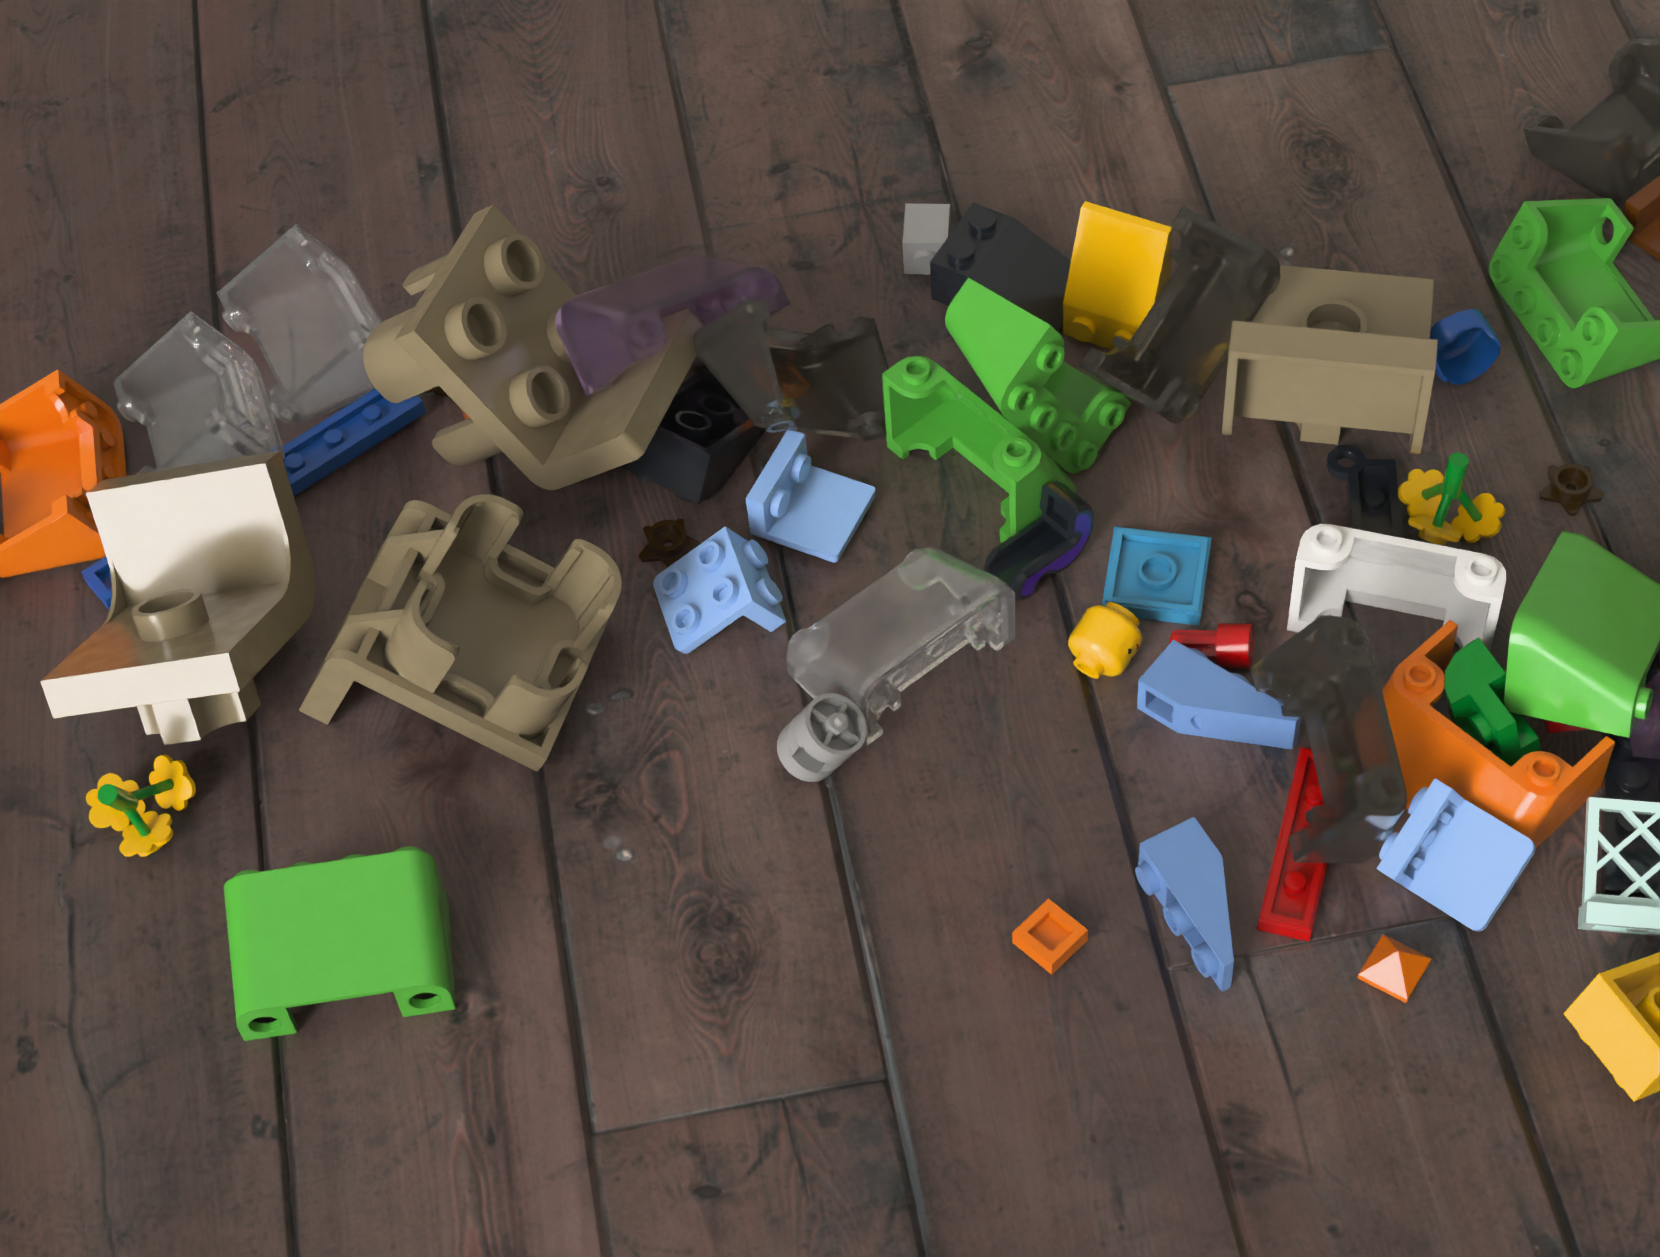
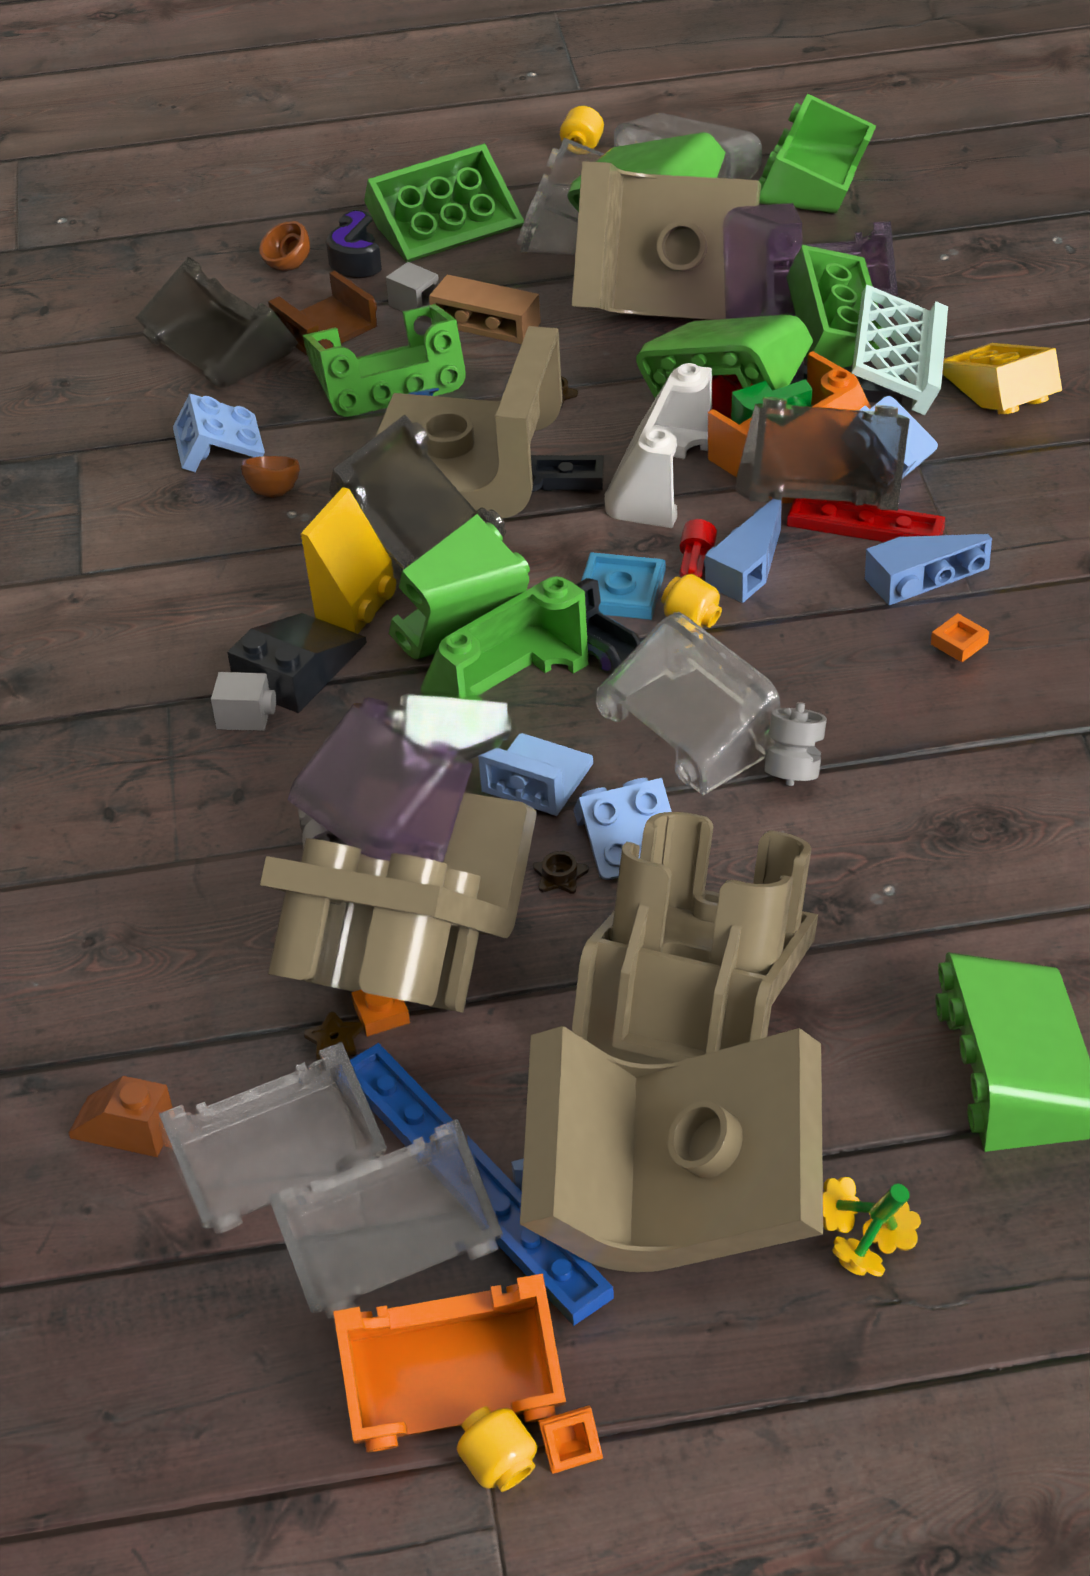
camera: 90 degrees left, 10 degrees down
(361, 233) = (124, 1116): none -> dark orange slope
(1336, 209) = (270, 474): none -> dark orange piece
(1394, 968) = (965, 487): orange slope -> none
(1423, 157) = (209, 423): none -> light blue bracket
(1431, 495) = (582, 428): yellow plant -> none

